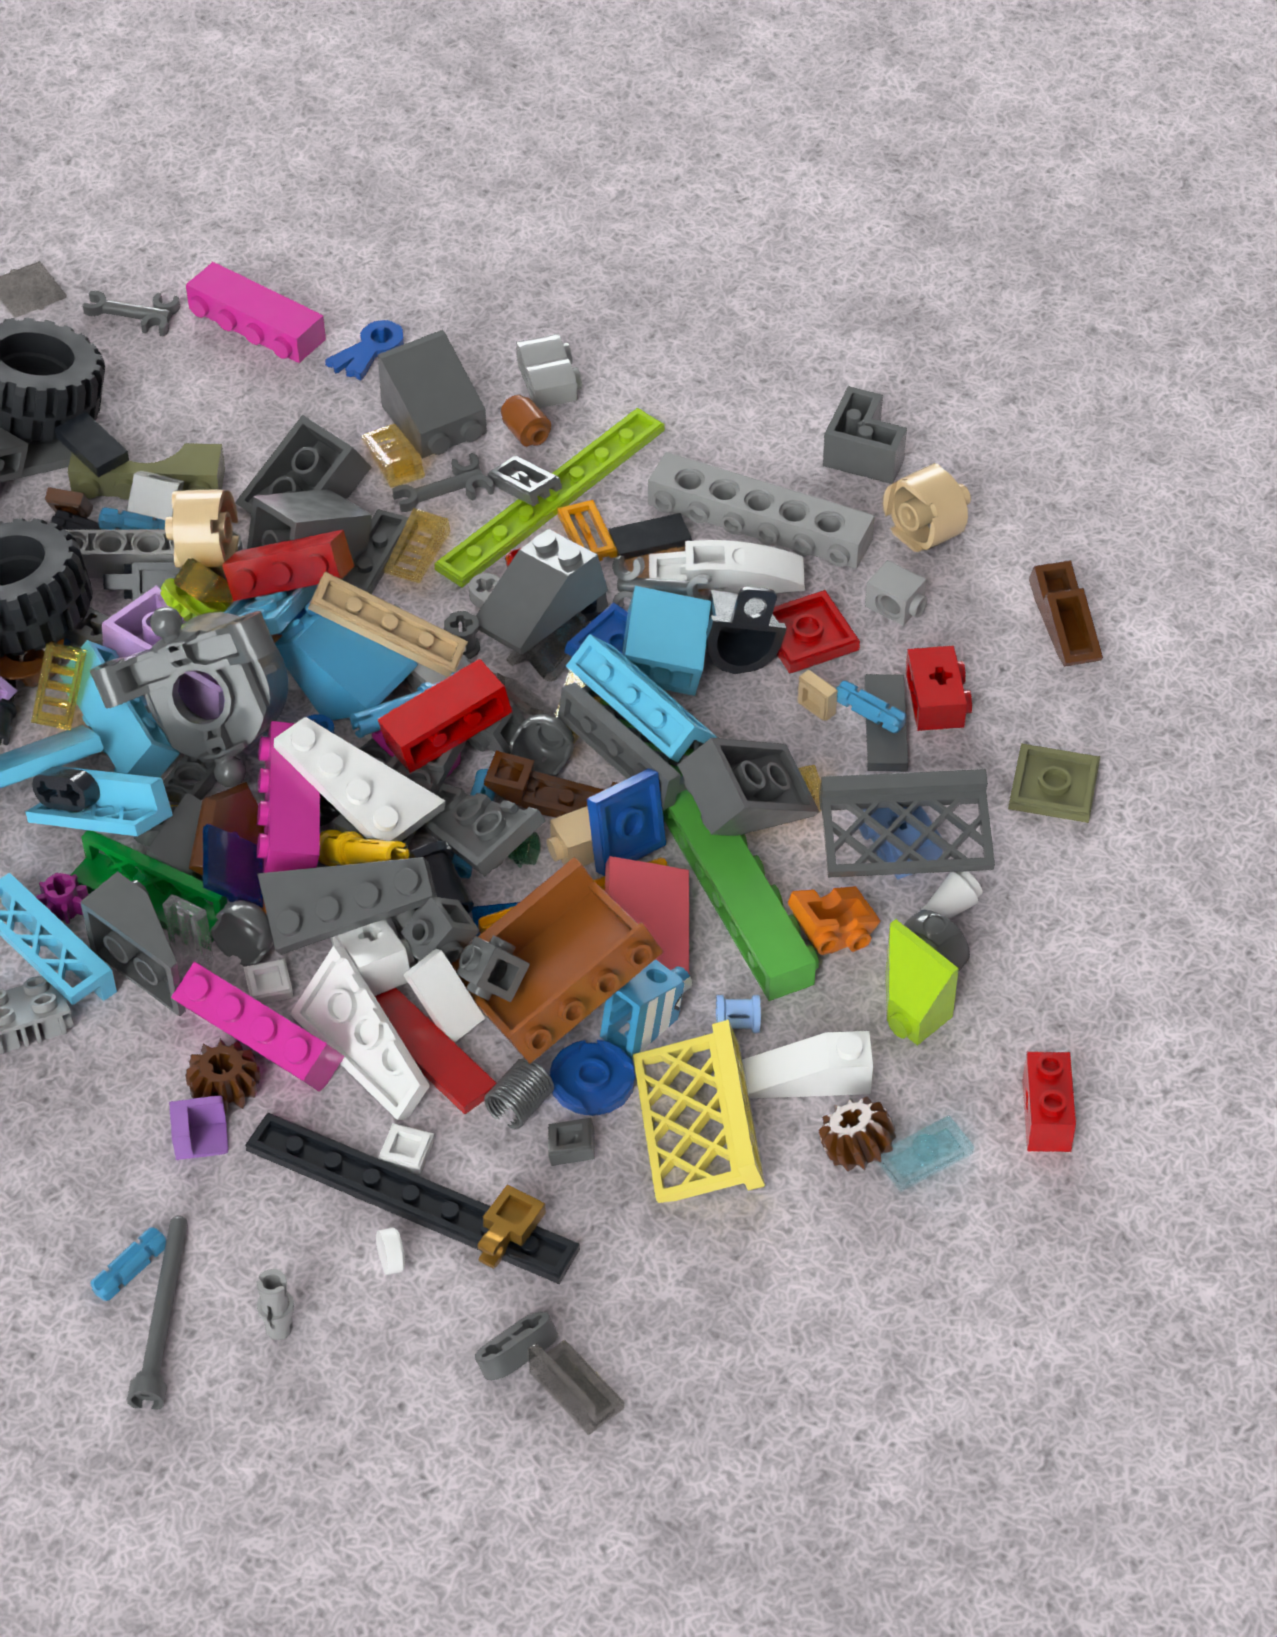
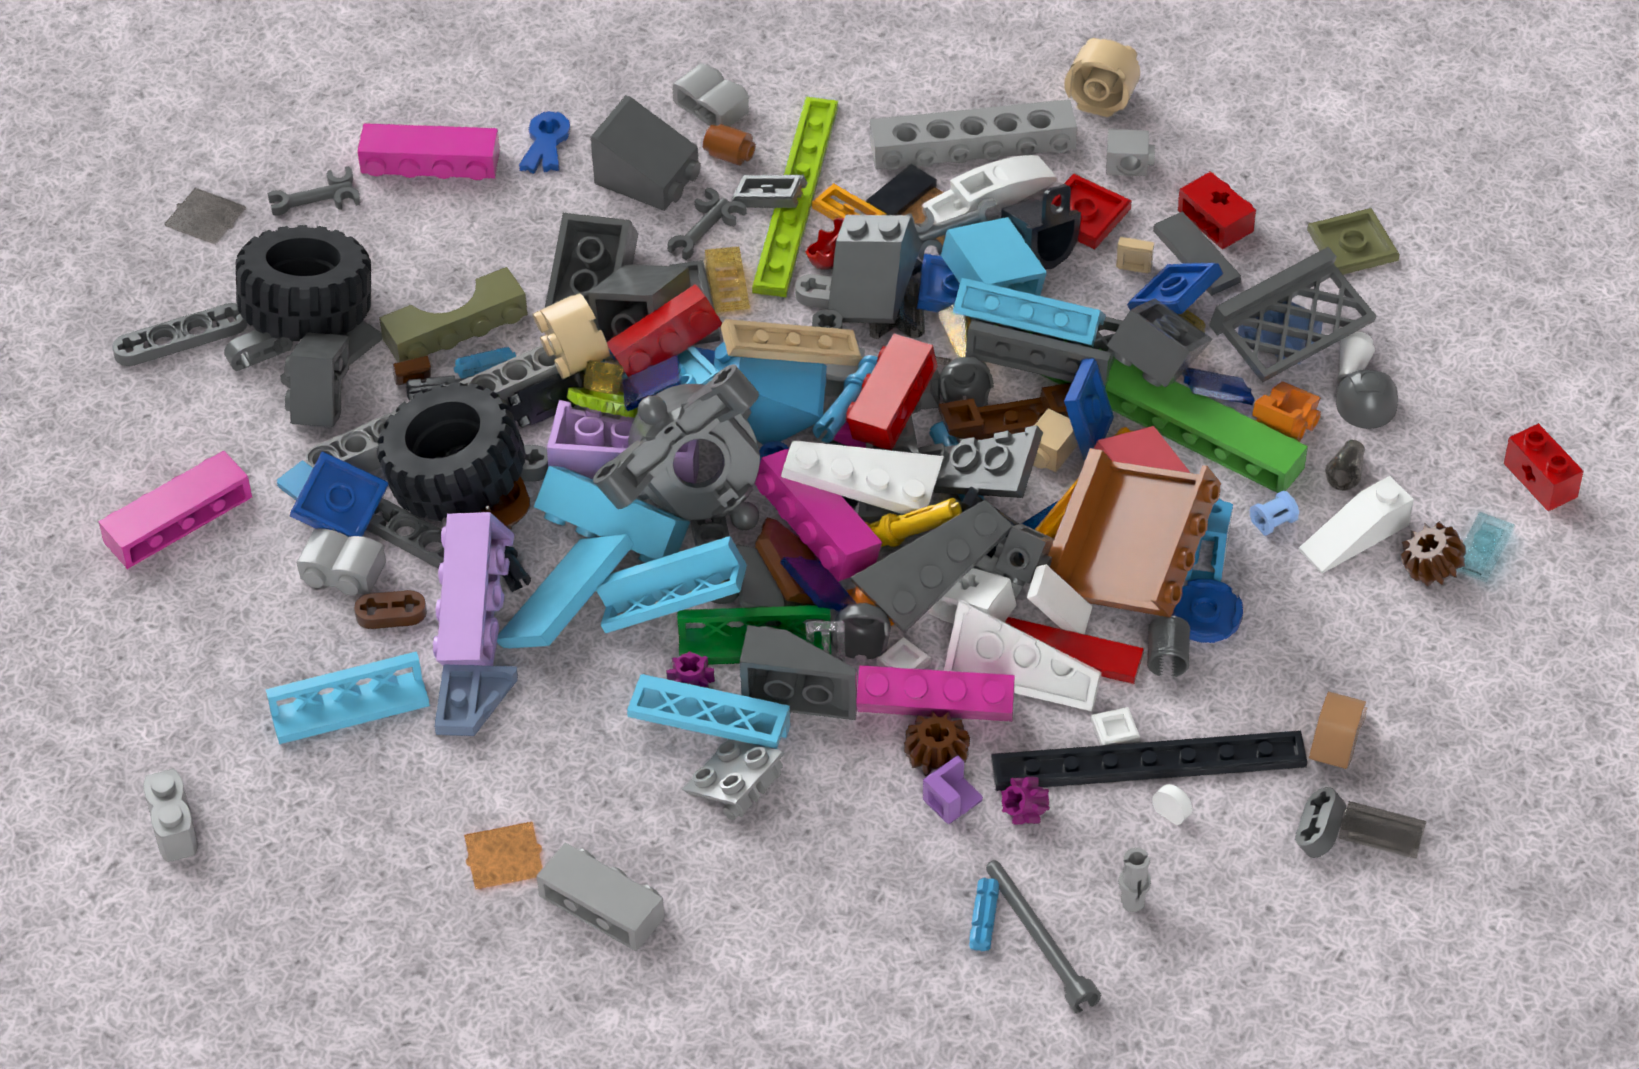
camera: 30 degrees left, 0 degrees up
(66, 789) = (631, 584): black beam -> none
(67, 652) = (537, 502): clear yellow slope -> none
(92, 444) = (402, 312): black tile -> none
(153, 494) = (488, 331): brick -> none
(235, 602) = (651, 381): none -> clear blue piece
(253, 1173) = (1025, 800): none -> magenta gear
(398, 465) = (657, 229): clear yellow slope -> none
(492, 968) = (1089, 561): dark grey brick -> none
(509, 1218) = (1247, 735): pearl gold plate -> none
(571, 1141) = (1233, 662): dark grey tile -> none
(606, 1259) = (1338, 730): none -> medium nougat brick
(735, 1115) = (1336, 582): light yellow fence -> none
(784, 860) = (1218, 386): none -> clear blue piece
(828, 744) = (1178, 285): none -> blue plate
(851, 1002) = (1346, 466): none -> clear smoke cone
(862, 442) = (1007, 48): dark grey brick -> none
(870, 707) = (1184, 245): dark azure axle -> none
(917, 985) = (1388, 427): lime slope -> none
(1065, 613) = (1261, 113): reddish brown slope -> none

